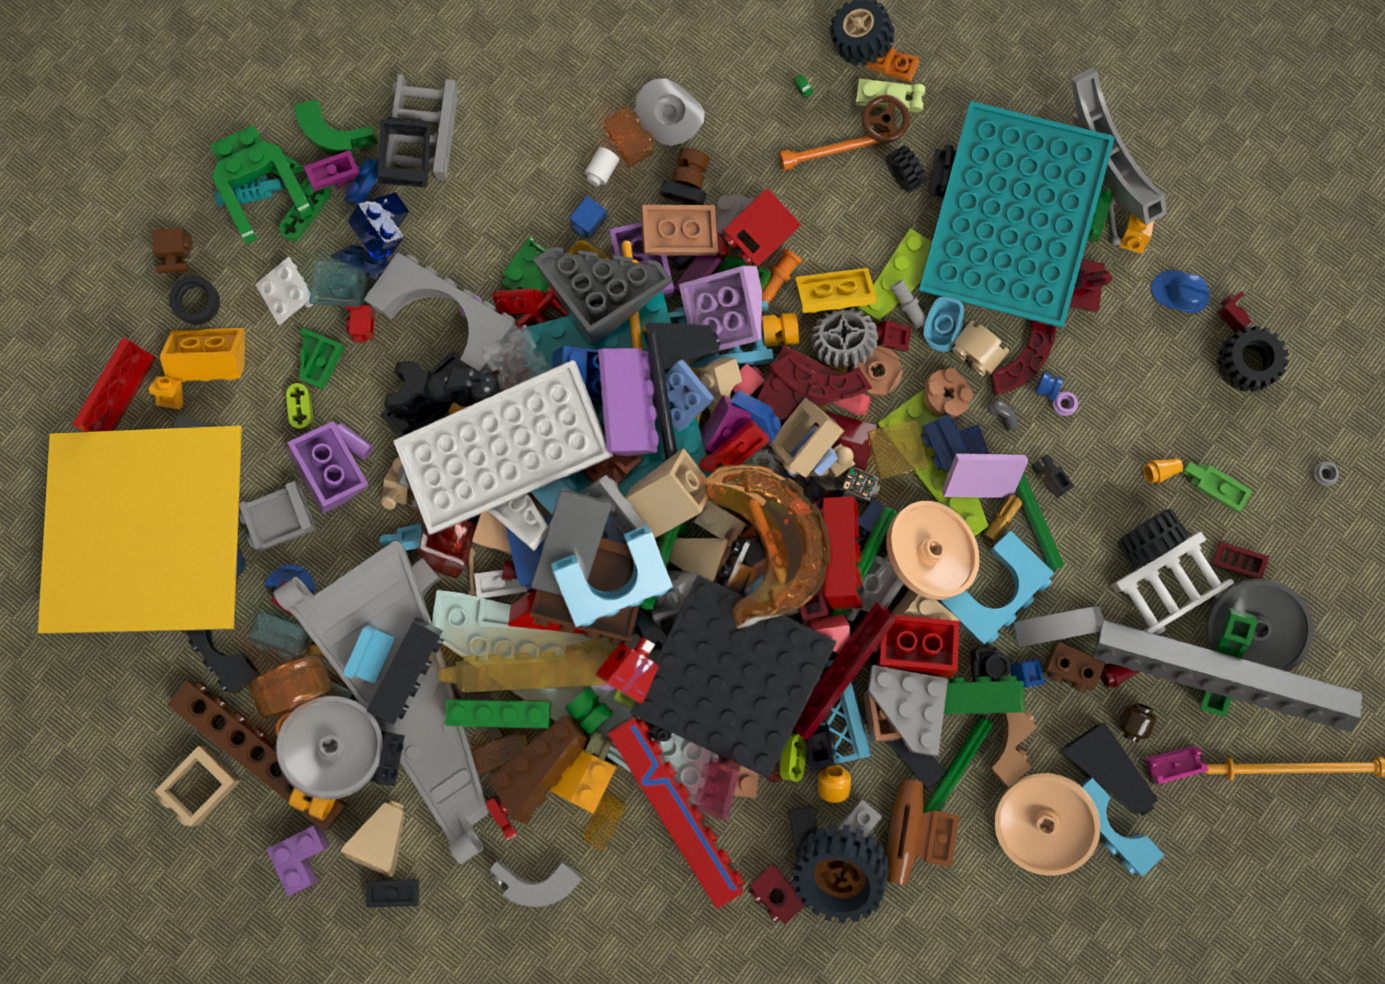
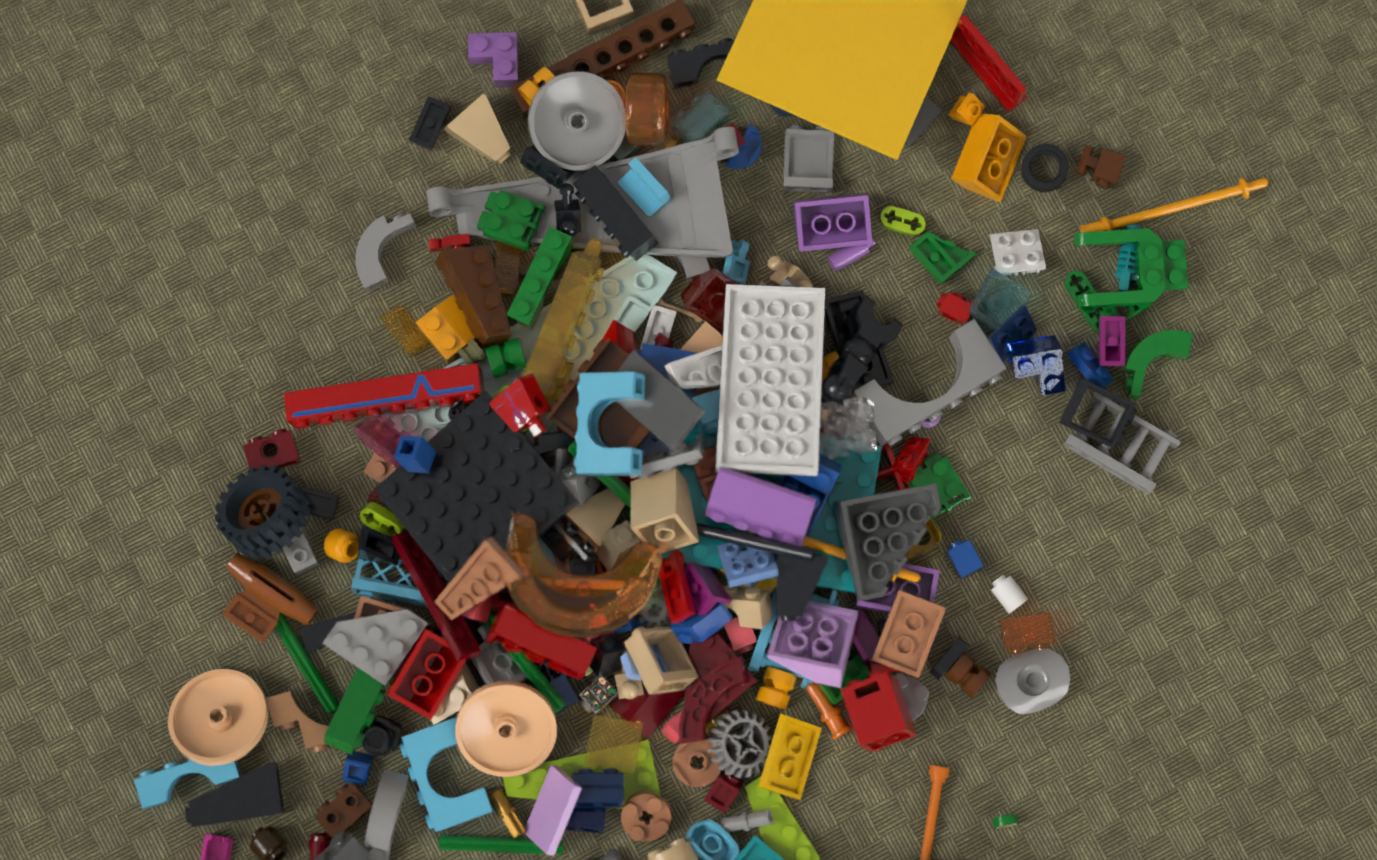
camera: 110 degrees right, 0 degrees up
(225, 223) = (1243, 188): none -> light orange bar
(423, 717) = (567, 211): none -> black piece
(453, 770) = (510, 219): none -> green plate
(722, 750) = (414, 454): none -> blue brick
(814, 629) = (478, 579): none -> nougat wing

